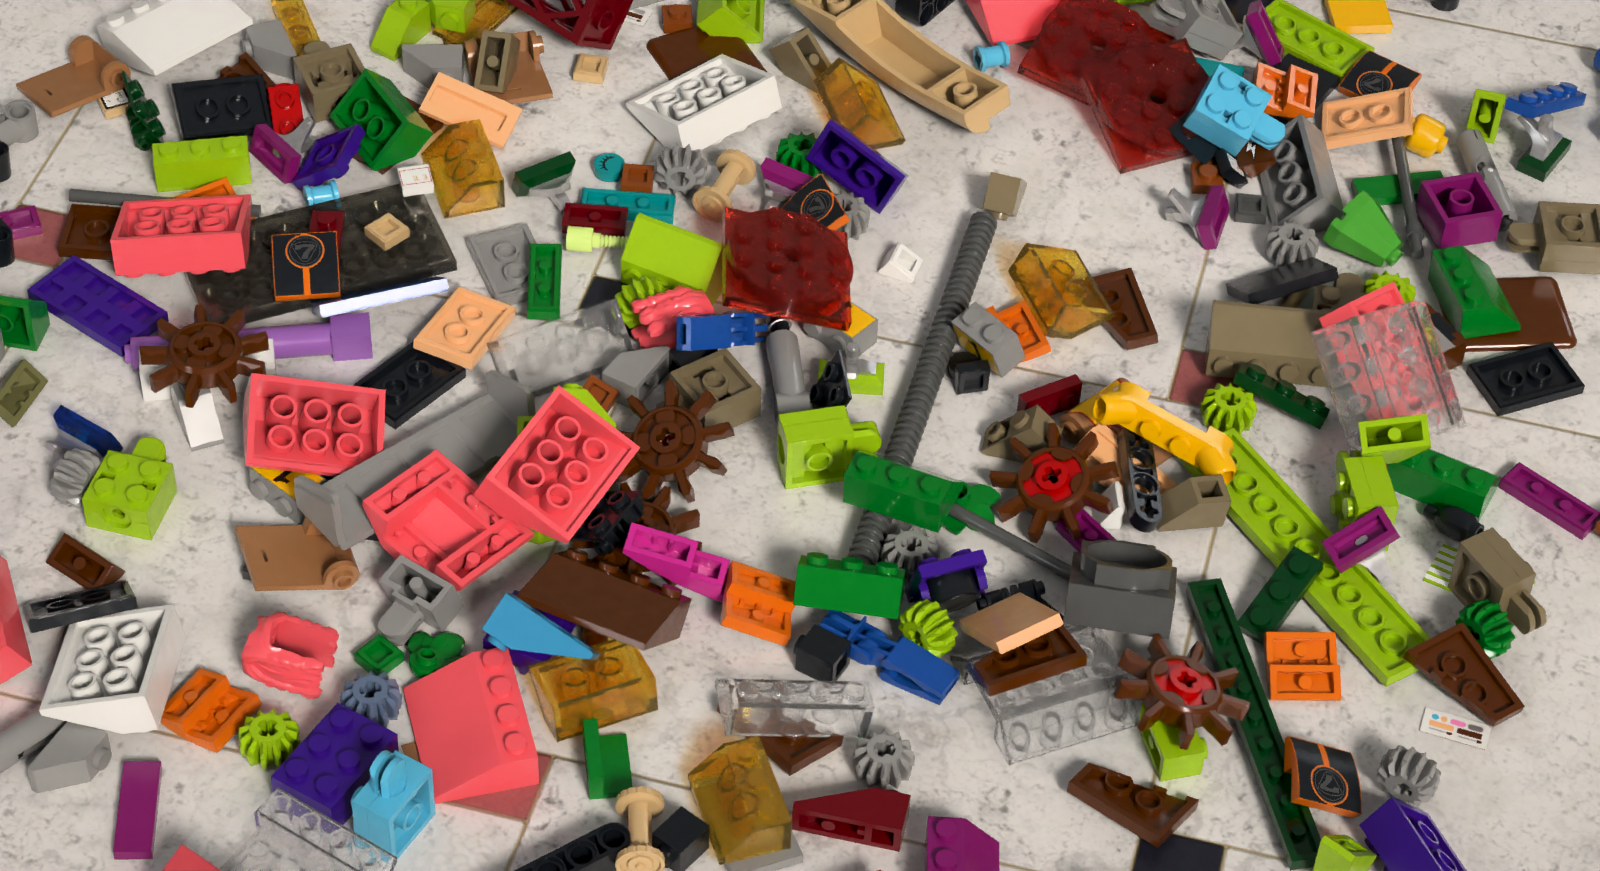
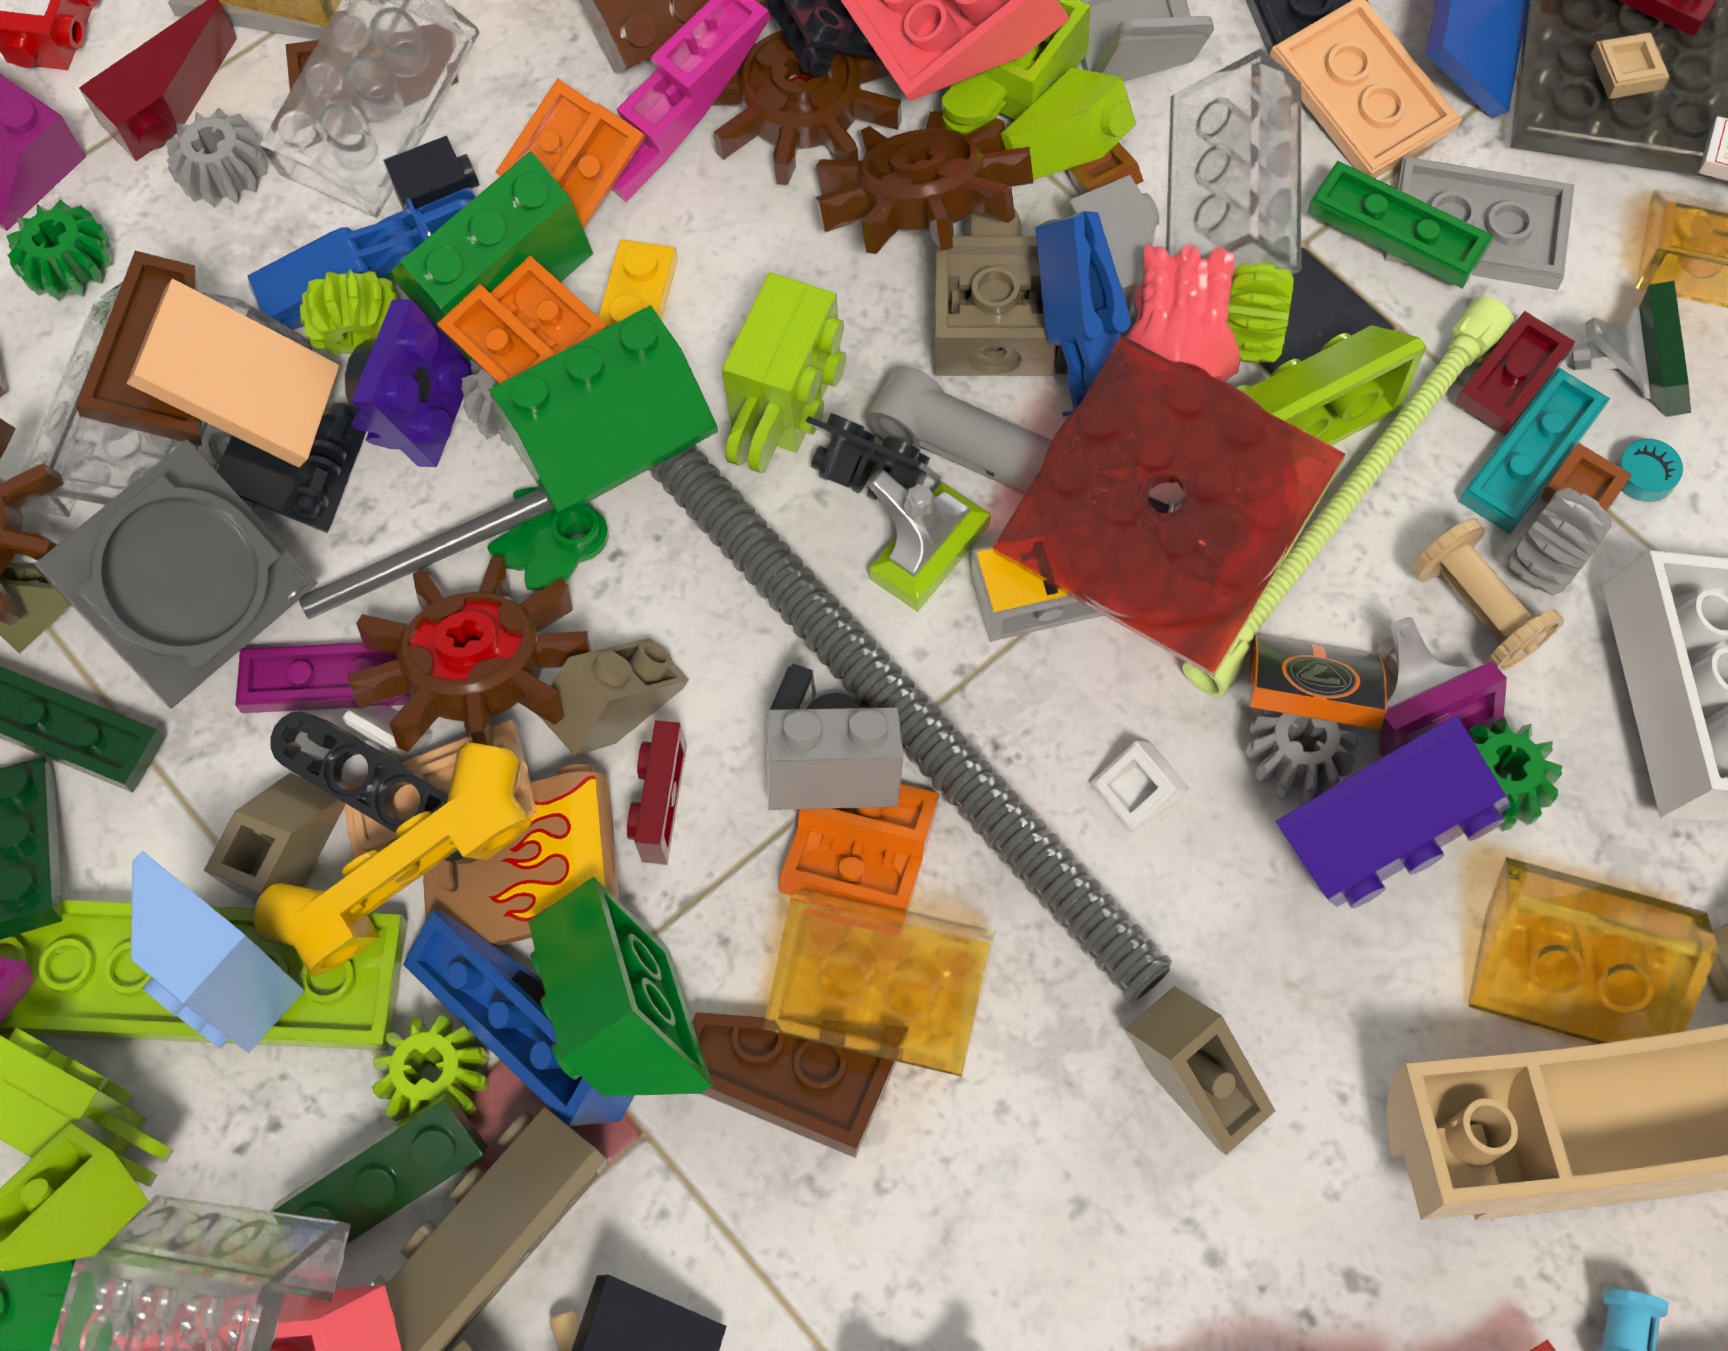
camera: 130 degrees right, 20 degrees up
(824, 539) = (638, 279): none -> yellow plate
(885, 539) = (519, 322): none -> orange slope
(995, 791) = (59, 250): none -> green gear
(1155, 338) = (614, 999): none -> green slope
(1182, 373) = (505, 1012): none -> blue slope
(1266, 449) = (202, 962): none -> light blue slope

